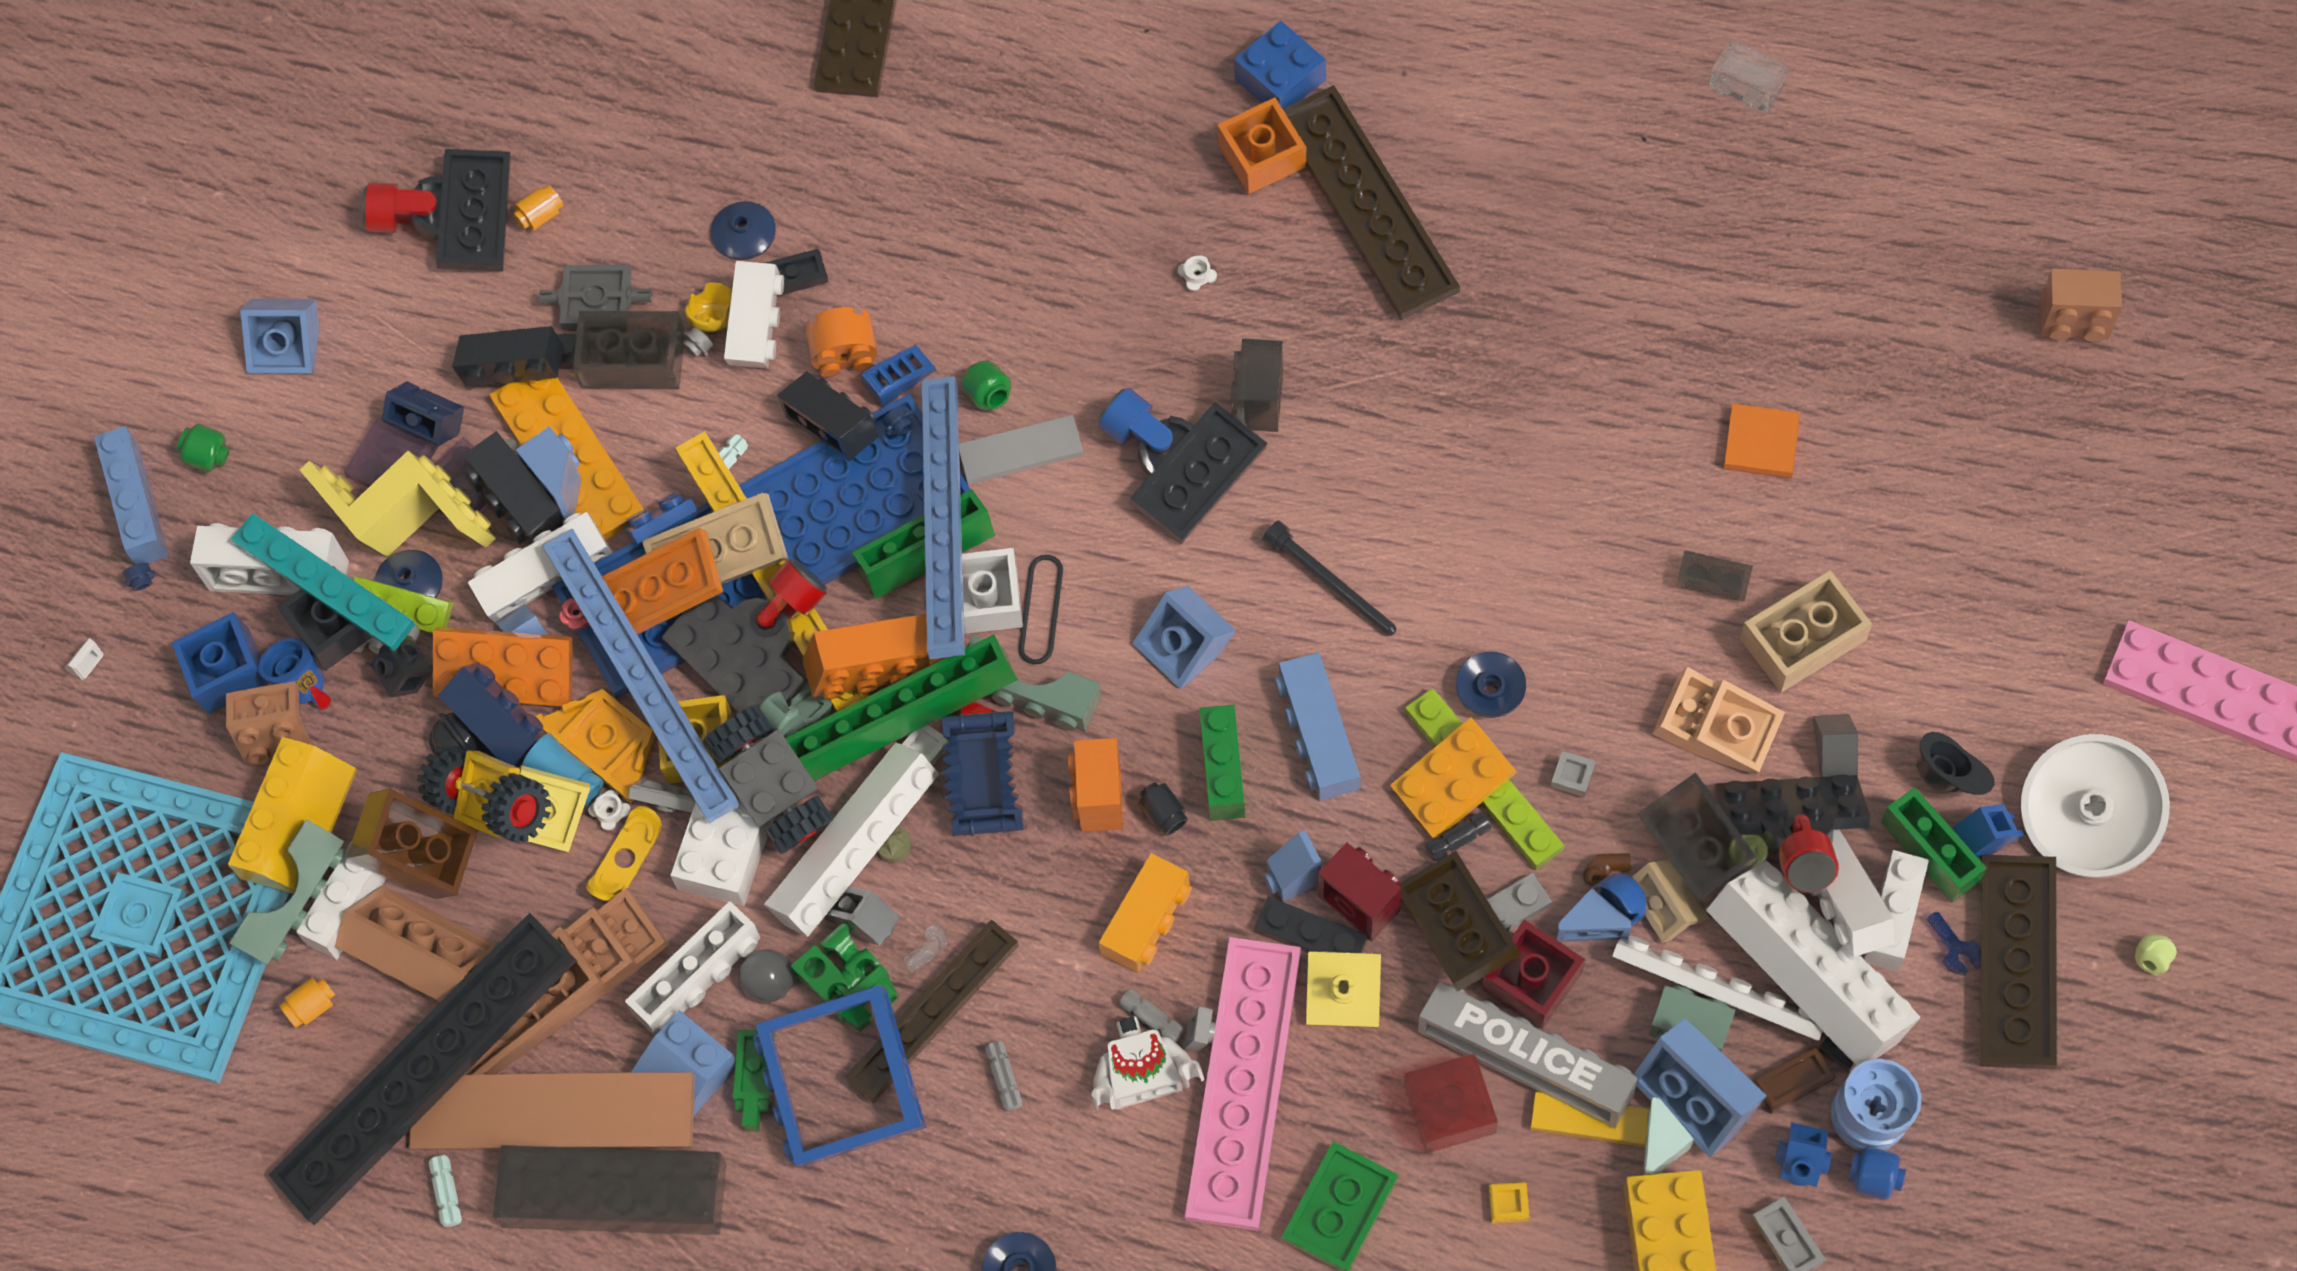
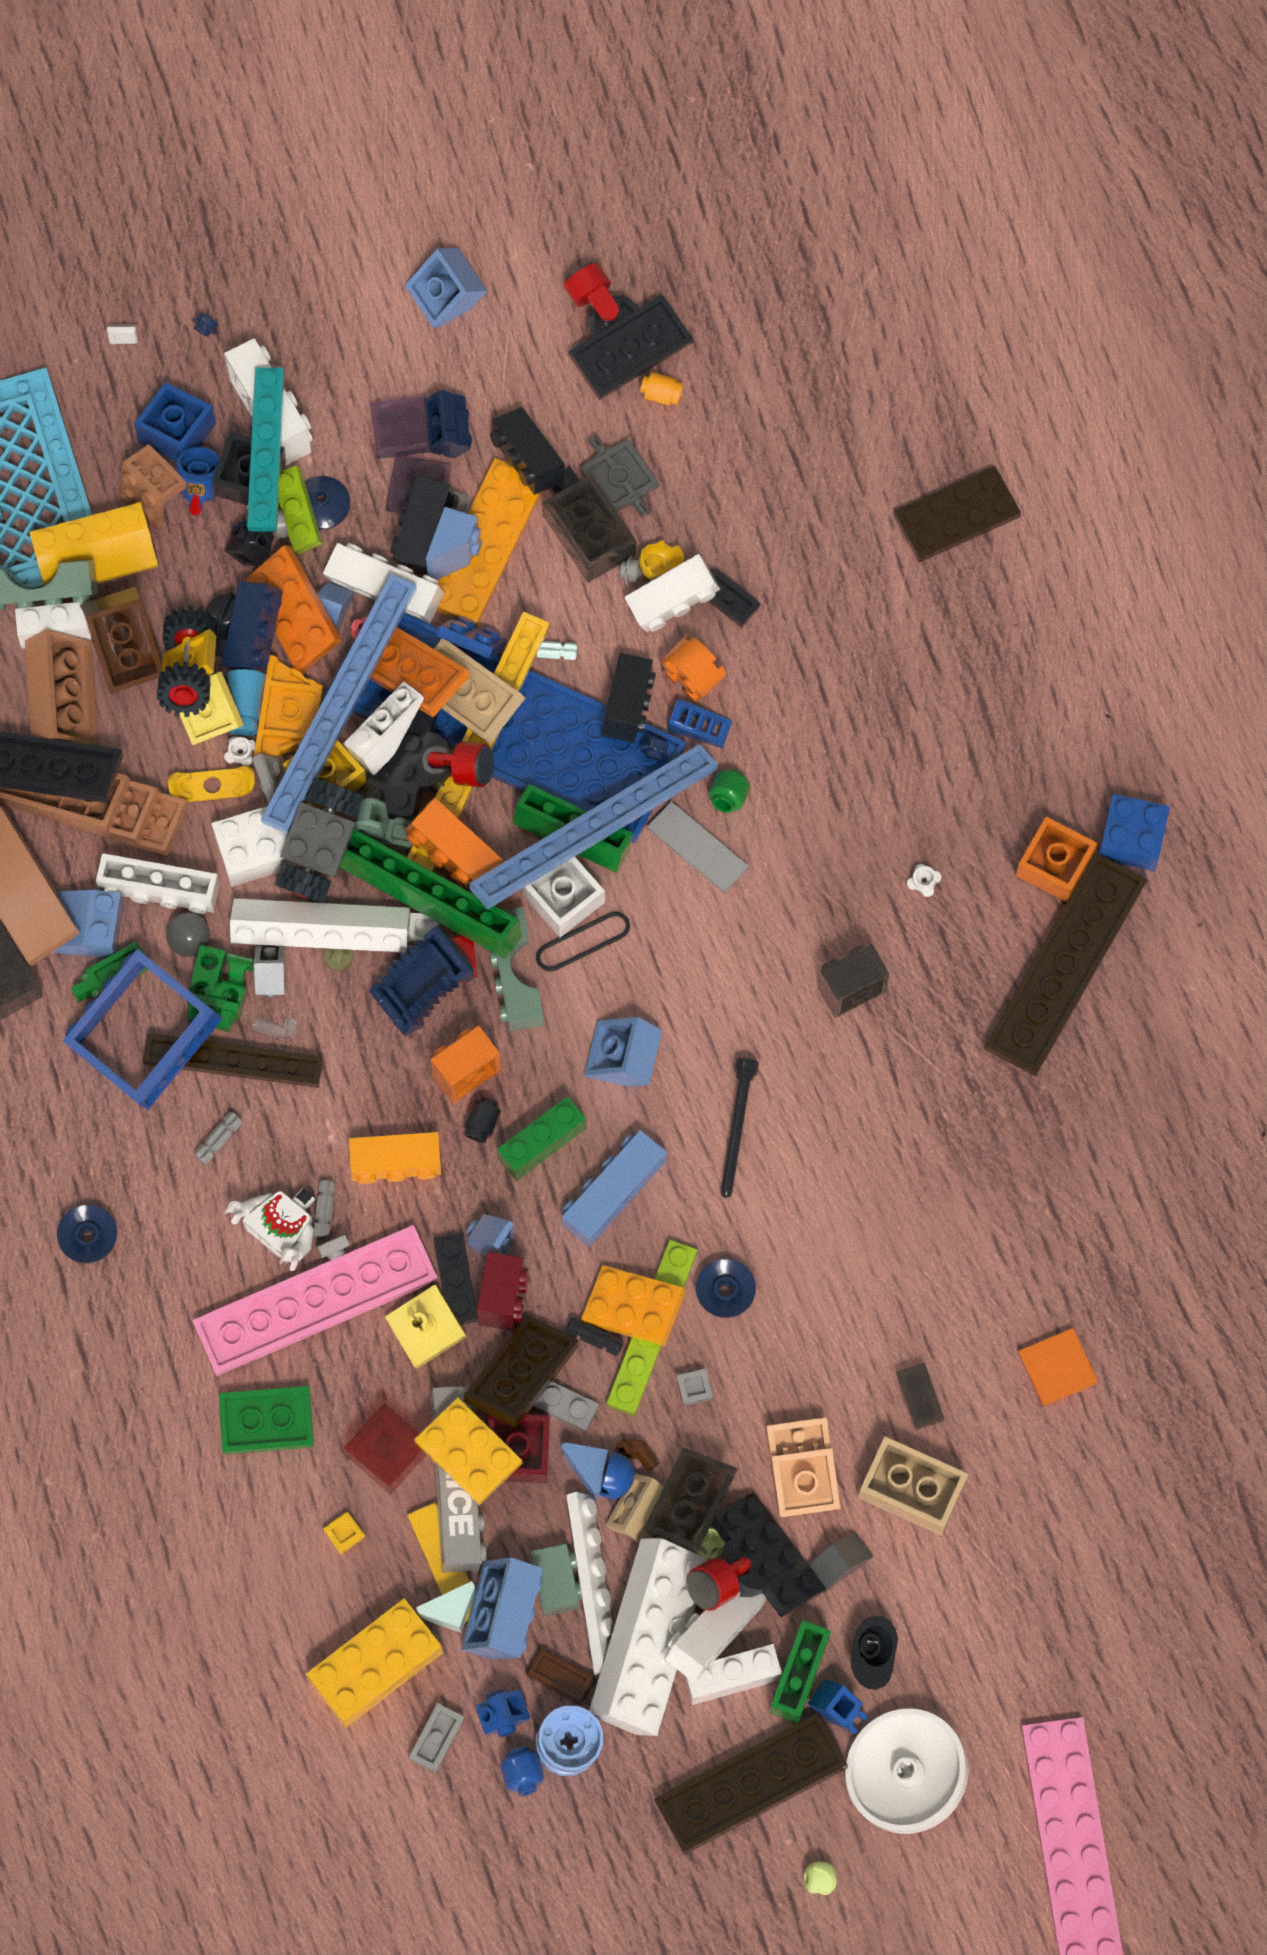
camera: 50 degrees right, 5 degrees up
(131, 496) = (258, 277): medium blue brick -> none
(202, 448) = (325, 297): green head -> none
(398, 503) = (364, 456): light yellow bracket -> none
(699, 645) = (383, 731): none -> white slope
(745, 241) = (740, 552): dark blue dish -> none
(1184, 462) = (759, 968): black plate -> none
(1513, 1018) = (468, 1451): none -> yellow plate
(1954, 946) = (737, 1730): clear blue bar -> none

